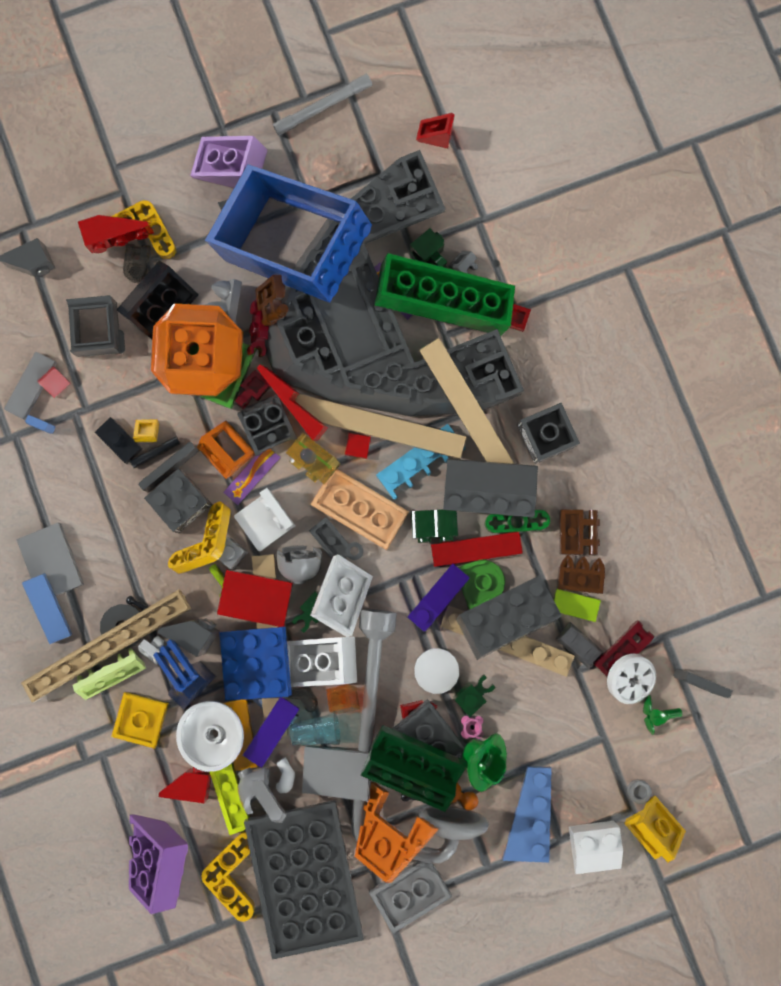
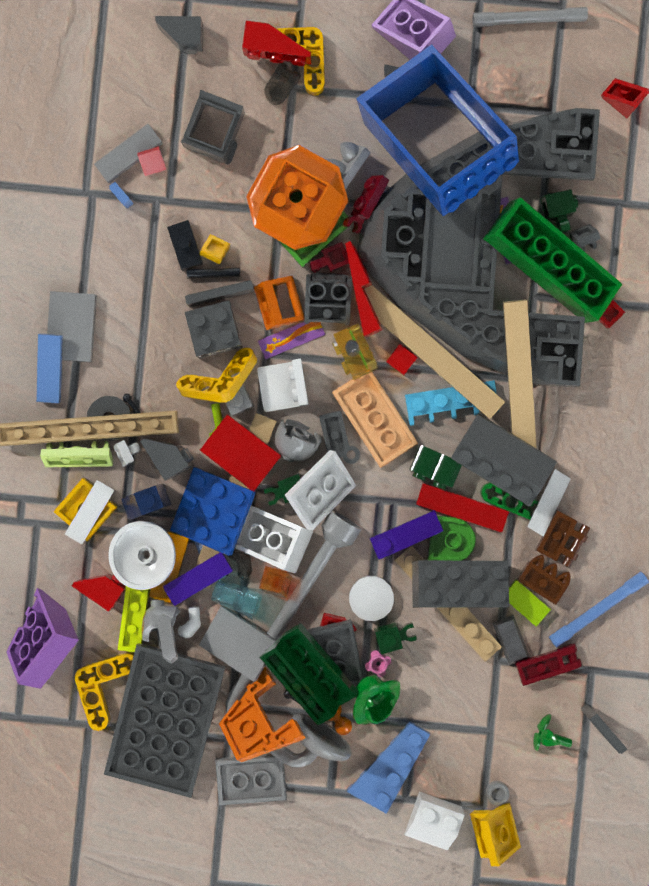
camera: 25 degrees right, 5 degrees up
(144, 720) = (89, 512): none -> white sticker
(154, 297) = (283, 128): black slope -> none
(172, 645) = (134, 480): blue tile -> none
(269, 300) = (388, 185): reddish brown plate -> none
(548, 433) = (581, 435): dark grey brick -> none
(550, 506) = (549, 502): none -> white sticker
(625, 612) = (629, 587): none -> medium blue piece
(629, 667) = (543, 681): white wheel -> none

